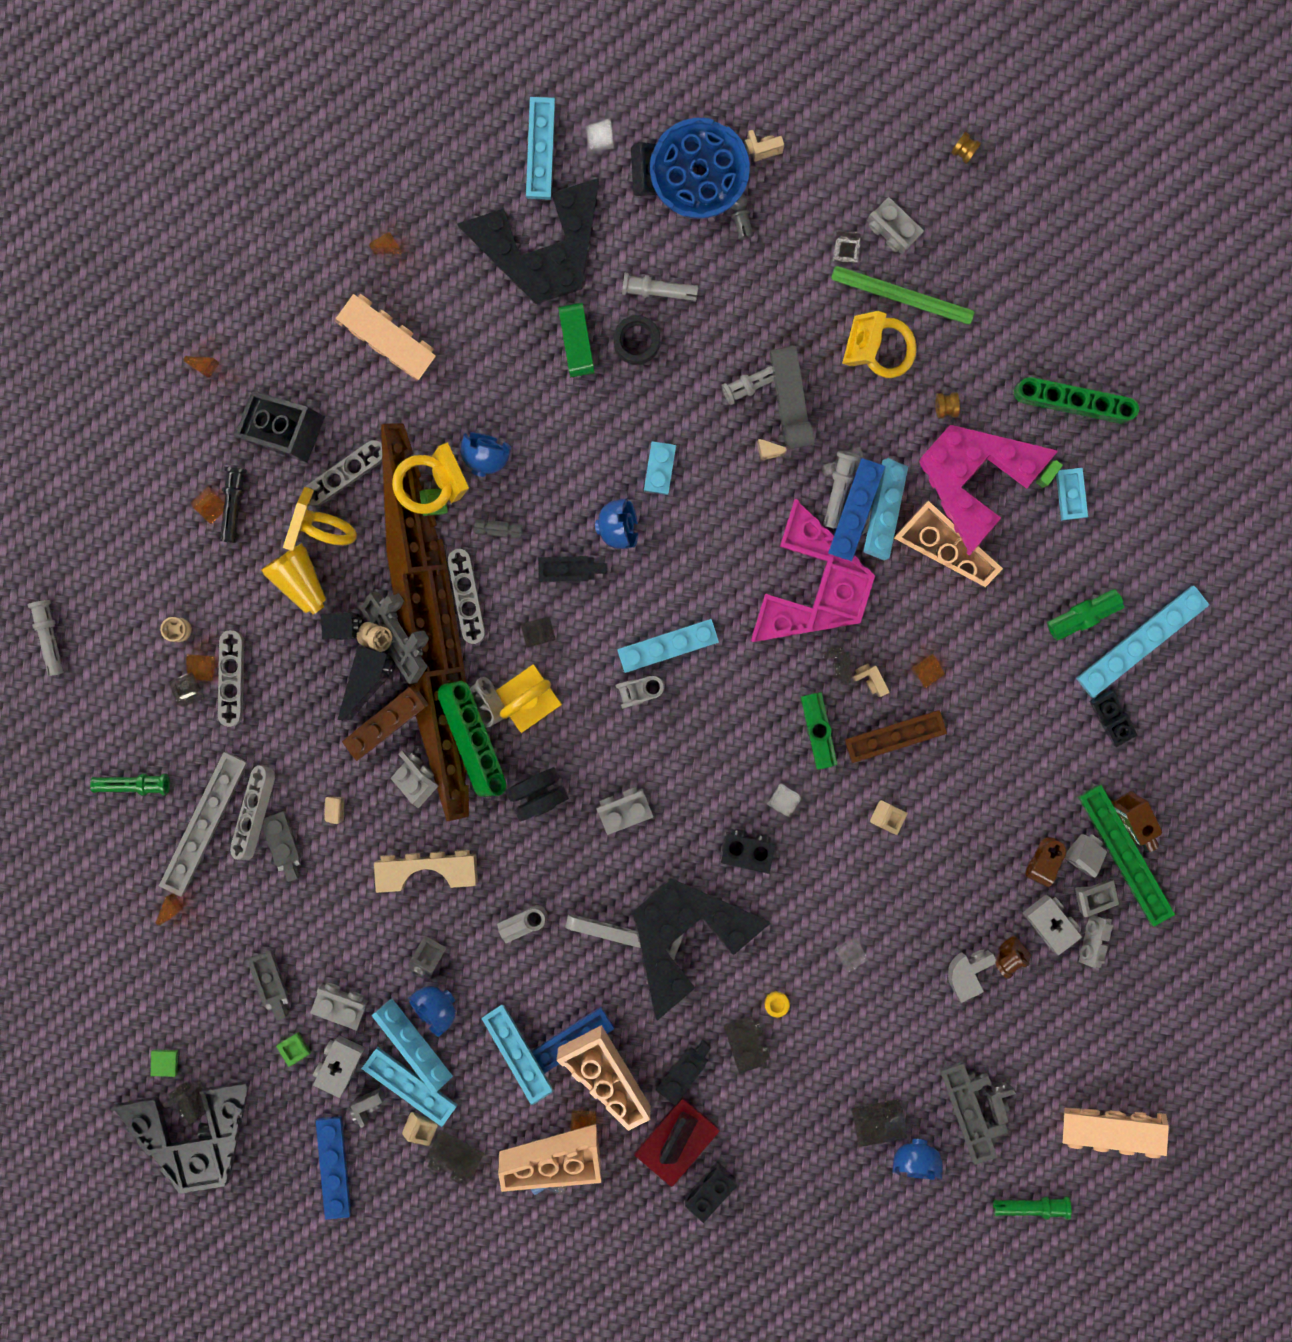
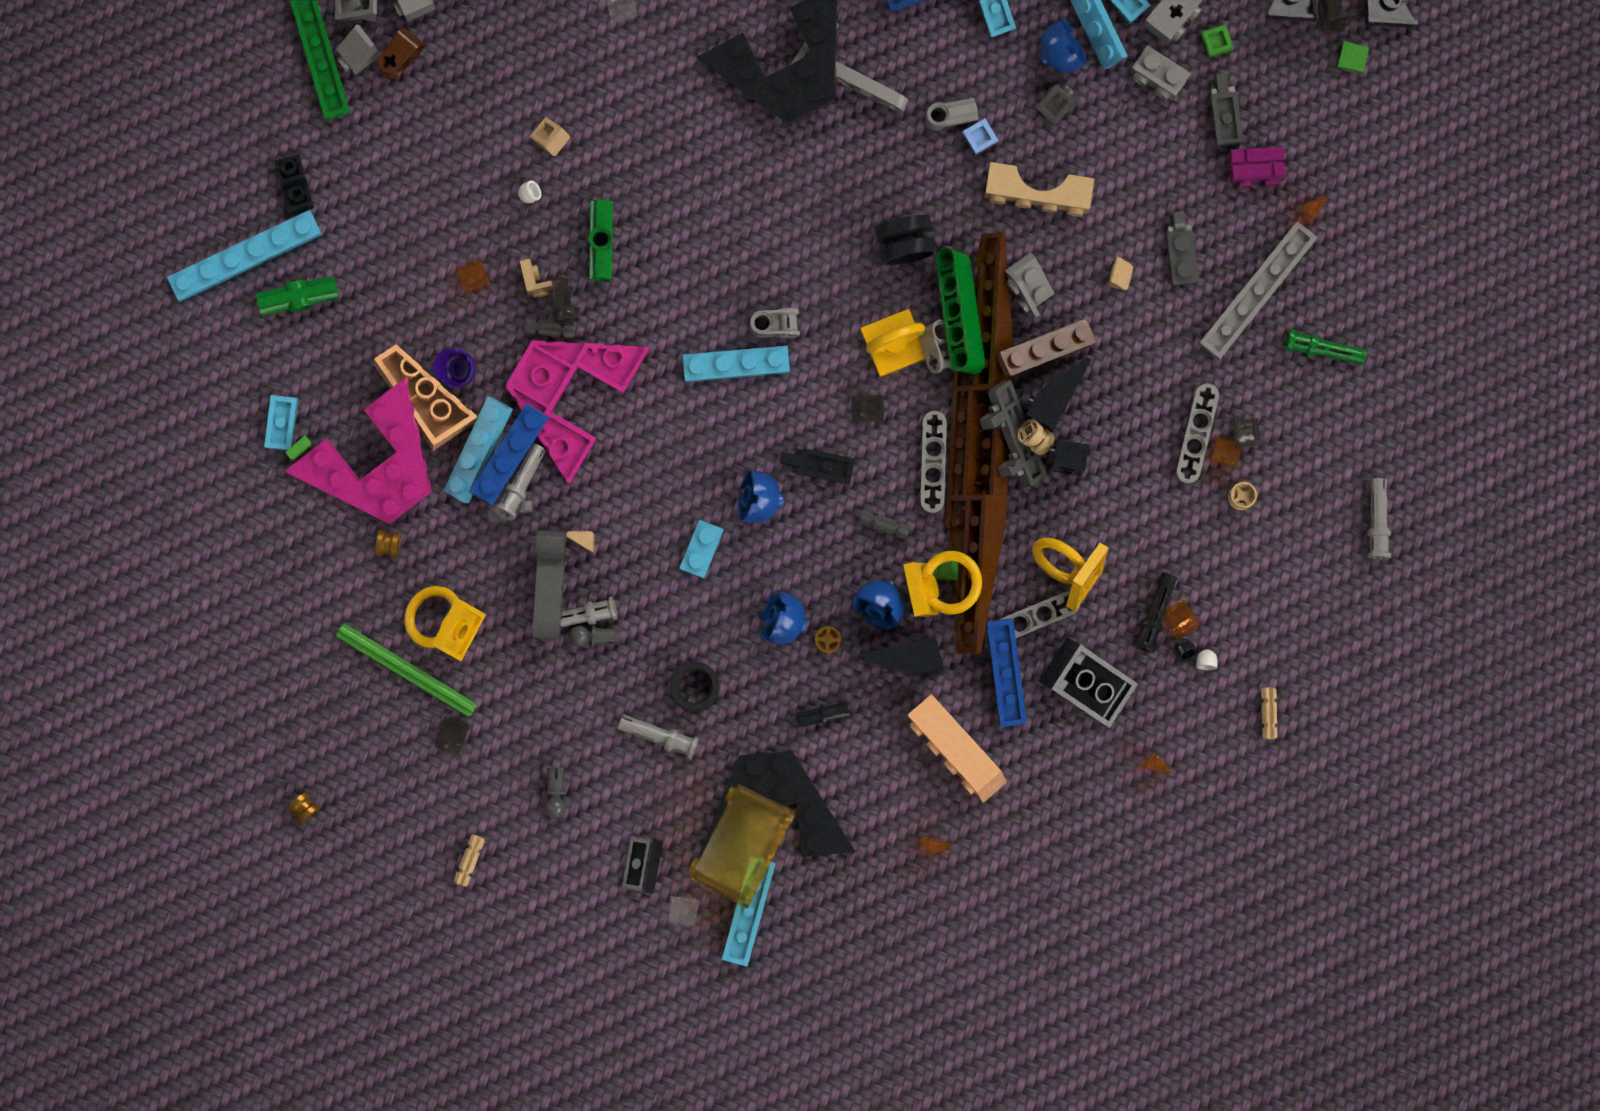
camera: 170 degrees left, 5 degrees down
(109, 437) = (1269, 713): none -> tan axle
(176, 472) = (1206, 660): none -> white hinge
(197, 475) = (1185, 650): none -> black hinge
(229, 940) = (1257, 166): none -> magenta brick
(249, 811) = (1201, 287): light grey beam -> none
(297, 579) = (1105, 517): yellow cone -> none
(355, 416) = (1006, 672): none -> blue plate
(445, 407) = (911, 658): none -> black slope
(491, 908) = (980, 136): none -> light blue plate
(514, 341) = (822, 714): none -> black axle
(525, 406) = (828, 636): none -> pearl gold wheel
(556, 199) = (742, 845): none -> clear yellow windscreen
(569, 418) = (783, 619): none -> blue cylinder
(576, 340) = (757, 701): green beam -> none
(624, 811) = (820, 205): light grey bracket -> none
(706, 145) = (560, 841): blue brick -> none
(745, 858) = (706, 127): black brick -> none
(751, 362) = (580, 636): none -> dark grey pin
(766, 148) = (510, 858): tan bracket -> none
(784, 800) = (652, 178): clear smoke slope -> none
(804, 136) = (469, 860): none -> tan axle
(846, 638) = (549, 328): none -> dark grey axle
(894, 226) = (396, 744): light grey bracket -> none
(895, 736) = (523, 216): reddish brown plate -> none
(895, 760) = (529, 192): none -> white hinge
(925, 580) = (454, 367): none -> dark purple hair
(1088, 400) = (241, 513): green beam -> none
(1138, 820) = (296, 74): reddish brown torso -> none

